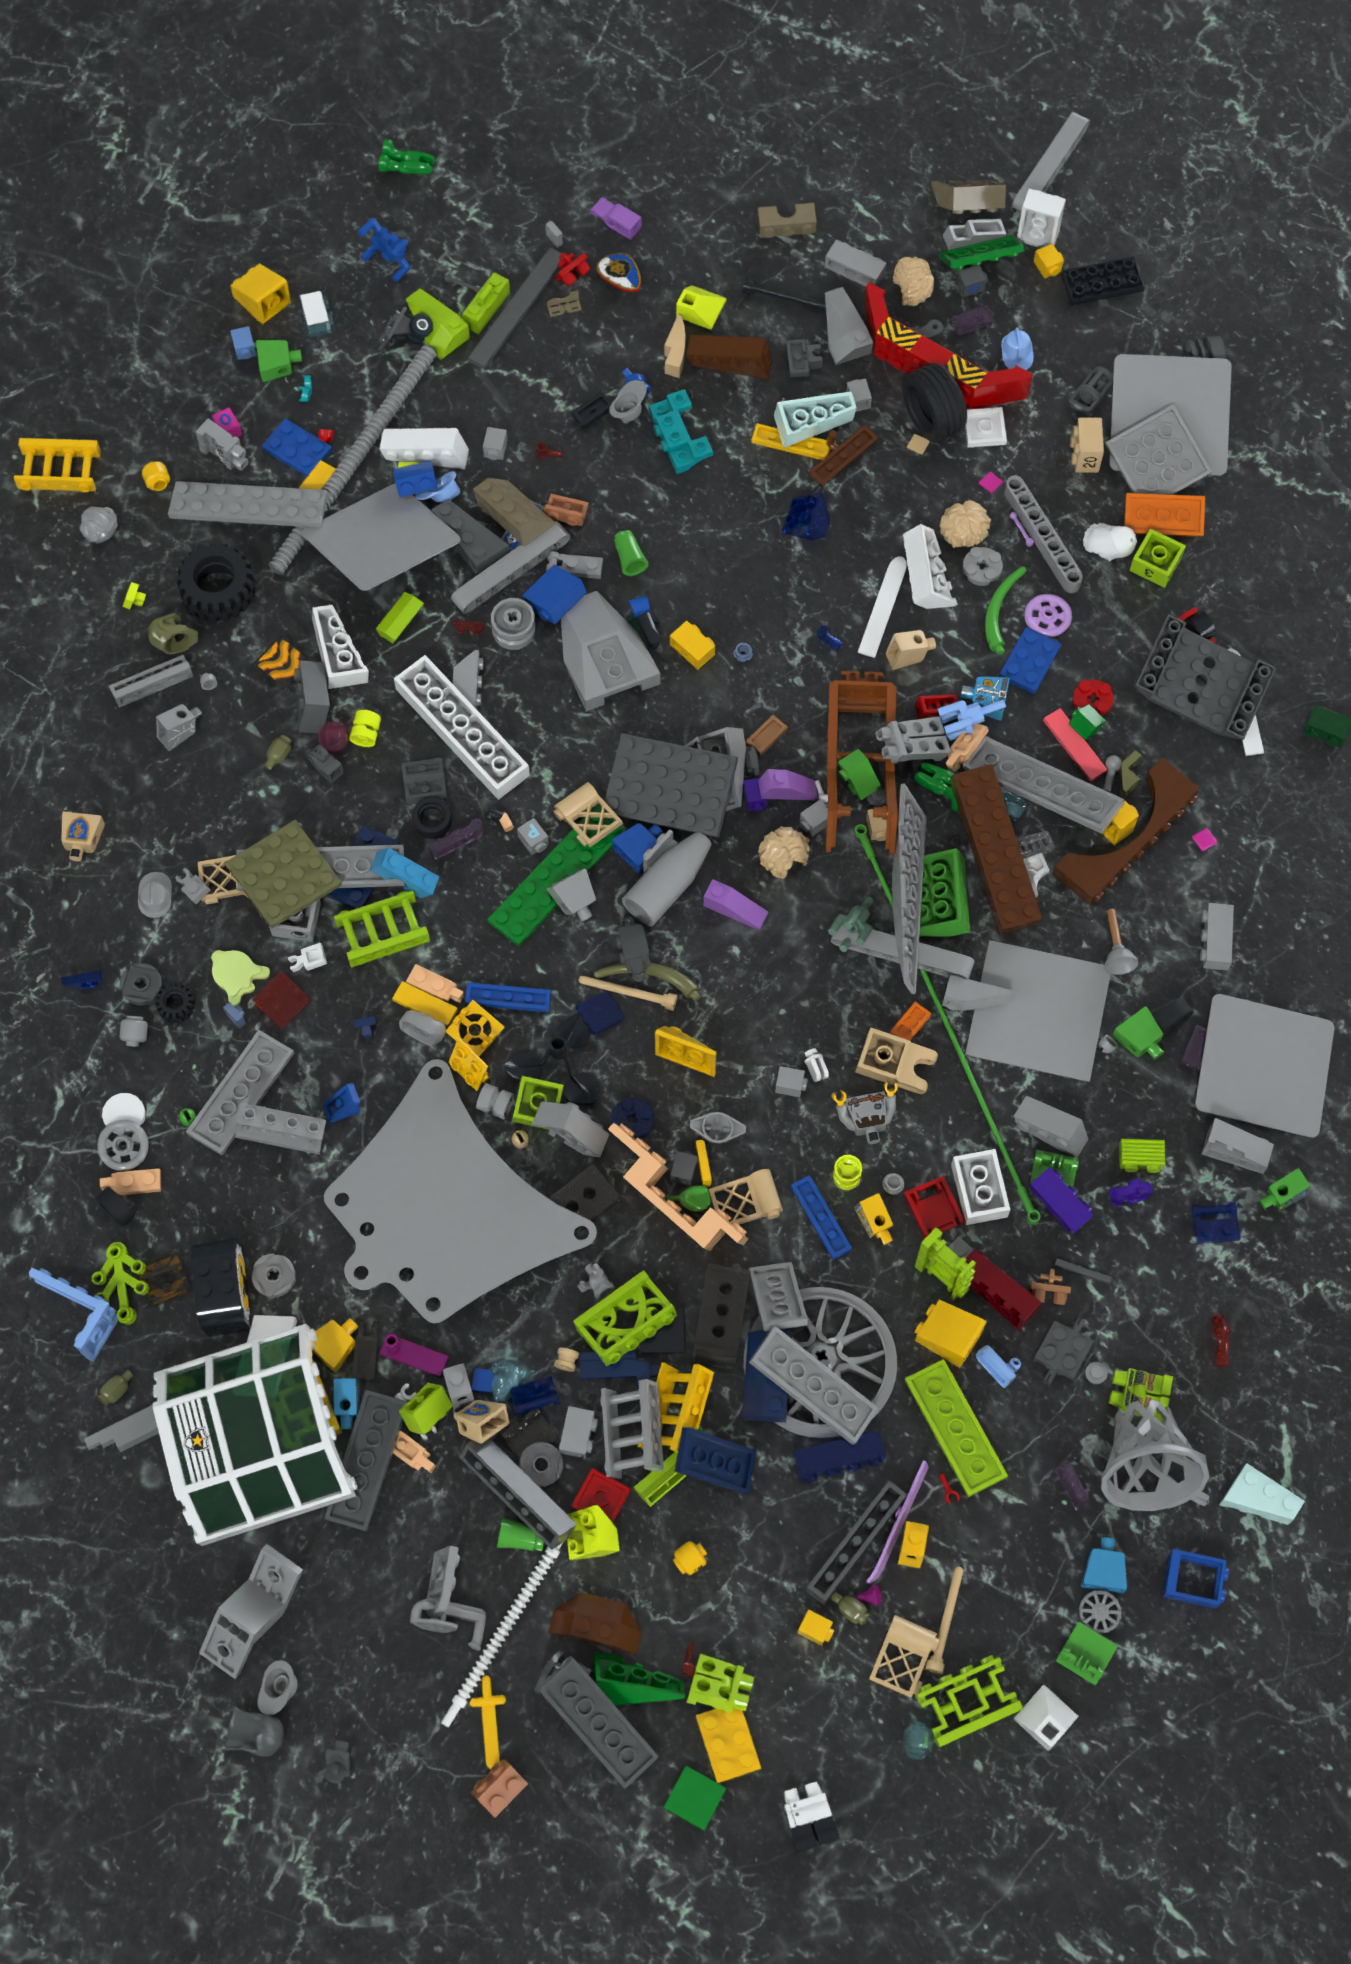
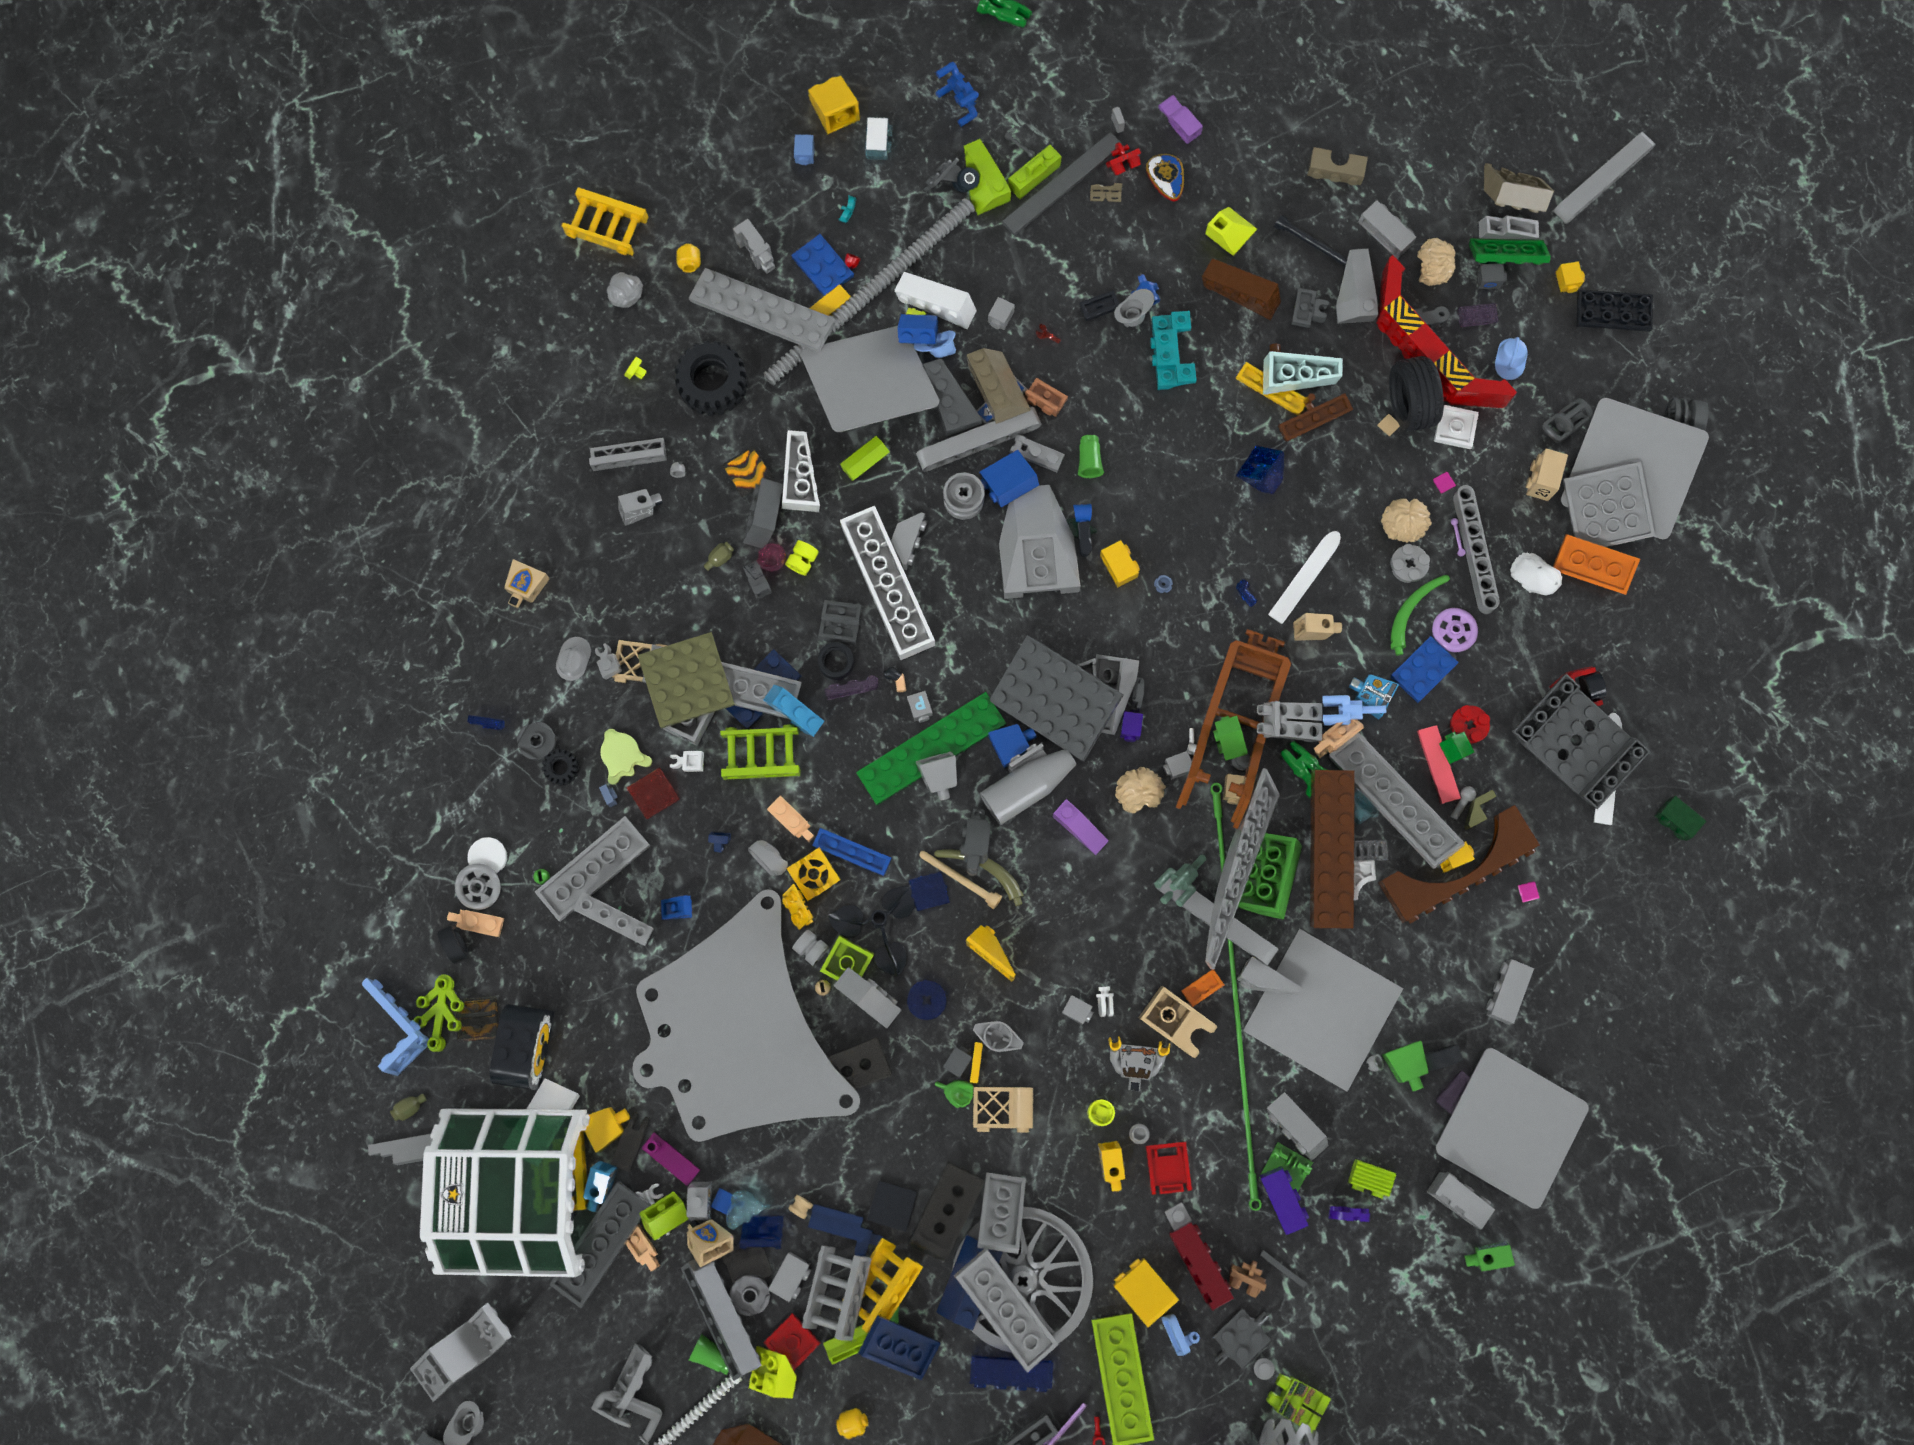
camera: 20 degrees right, 10 degrees up
(133, 1030) = (517, 783): light grey head -> none
(163, 632) = (652, 412): olive helmet -> none
(228, 422) = (766, 226): dark pink brick -> none
(275, 358) = (828, 173): bright green torso -> none
(277, 1287) = (561, 1042): light grey plate -> none
(423, 1002) = (777, 835): yellow tile -> none
(462, 627) = (920, 483): clear red piece -> none
(579, 805) = (967, 688): tan piece -> none
(597, 1281) = (849, 1142): light grey piece -> none
(631, 1337) = (836, 1177): lime fence -> none
(646, 1174) = (914, 1067): light nougat bracket -> none
(675, 349) = (1194, 266): tan slope -> none
(766, 735) = (1160, 670): medium nougat tile -> none
(786, 785) = (1162, 729): medium lavender slope -> none
(821, 1217) = (1065, 1146): blue plate -> none
(860, 393) = (1351, 360): light grey brick -> none
(924, 704) = (1312, 685): red slope -> none
(927, 569) = (1356, 553): white wedge -> none
(945, 1264) = (1149, 1219): lime fence -> none
(980, 1187) = (1215, 1164): white brick -> none
(1040, 219) = (1575, 235): white brick -> none
(1119, 959) = (1412, 986): light grey piece -> none
(1157, 558) = (1575, 606): lime brick -> none
(1216, 1230) = (1417, 1269): clear blue plate -> none
(1221, 1332) = (1389, 1371): clear red piece -> none

